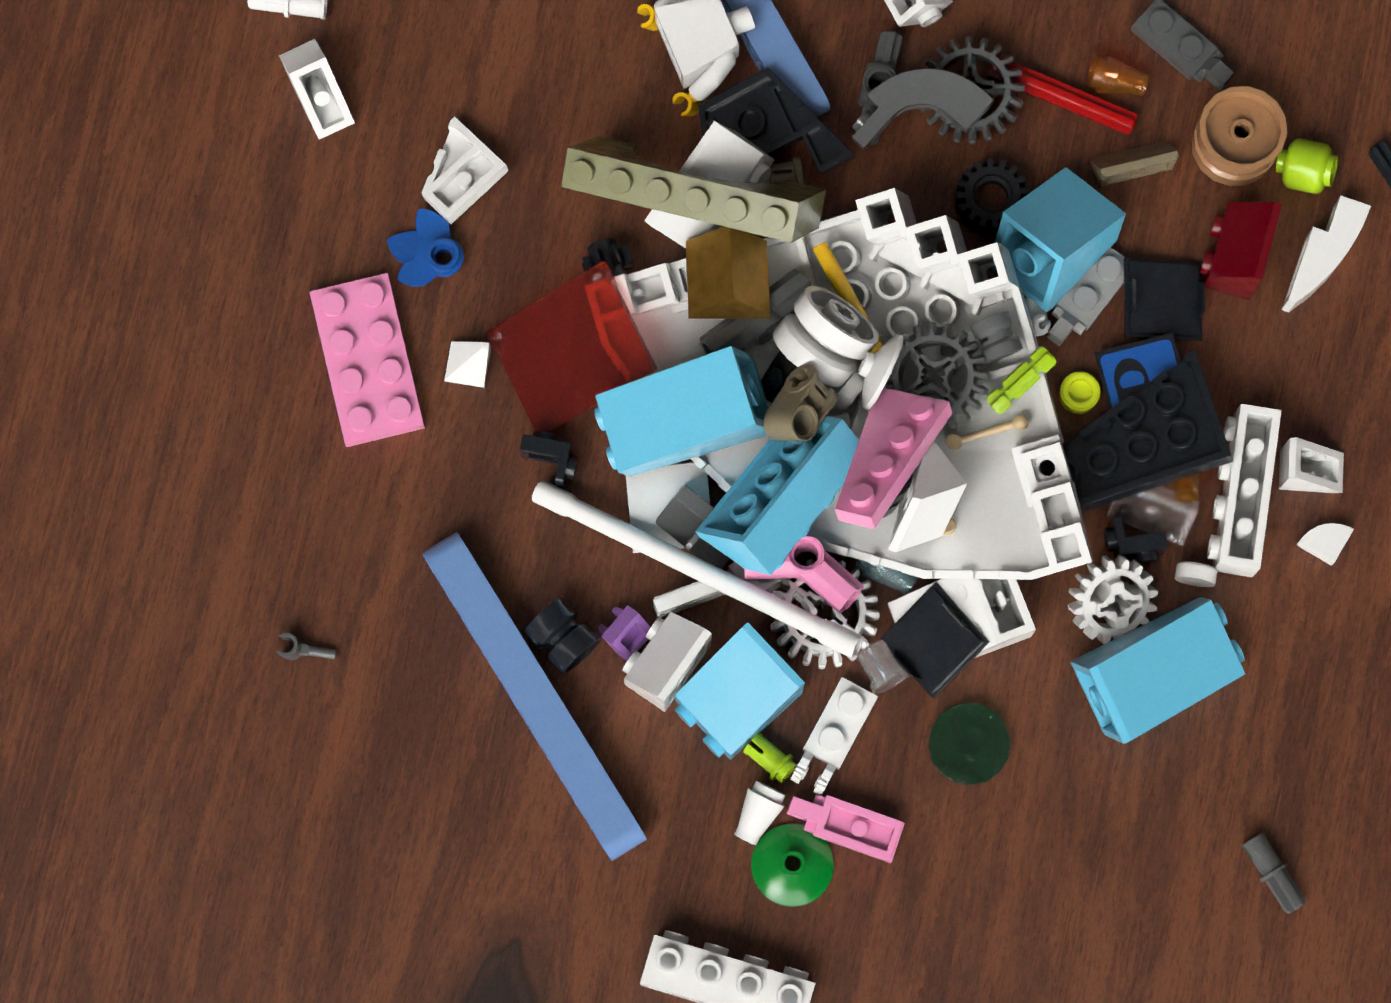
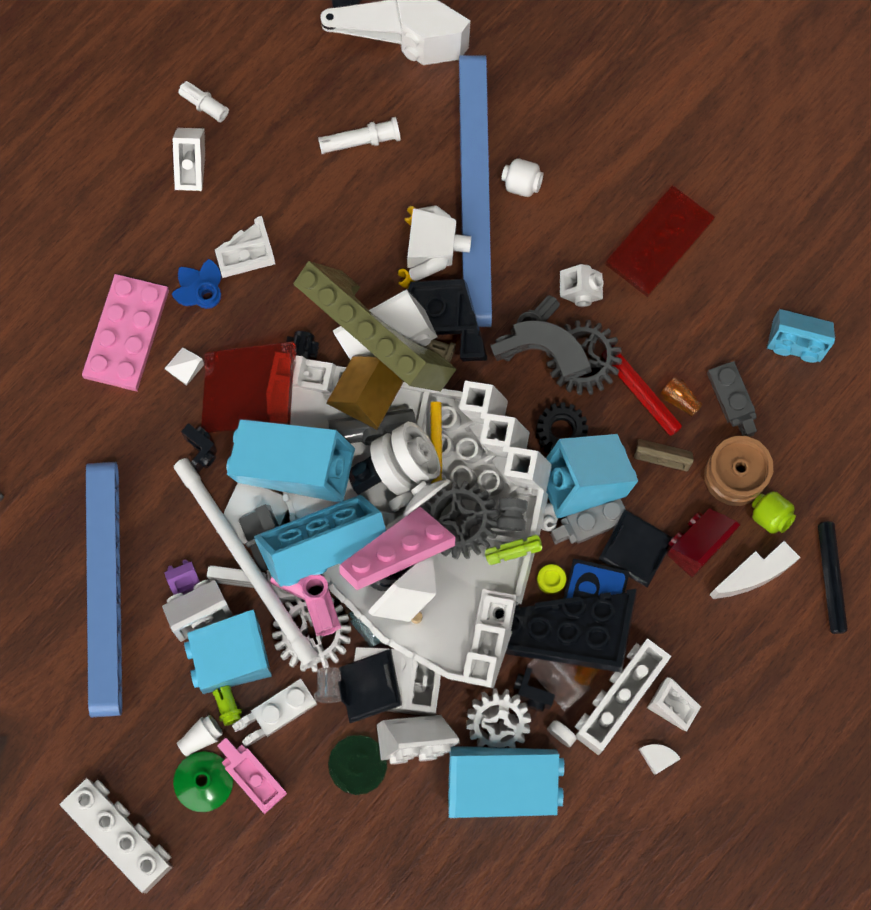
camera: 25 degrees right, 5 degrees down
(563, 636) = (141, 555): black wheel -> none
(799, 407) = (365, 490): dark tan piece -> none
(955, 441) = (453, 567): tan hinge -> none
(1028, 673) = (415, 737): none -> white slope

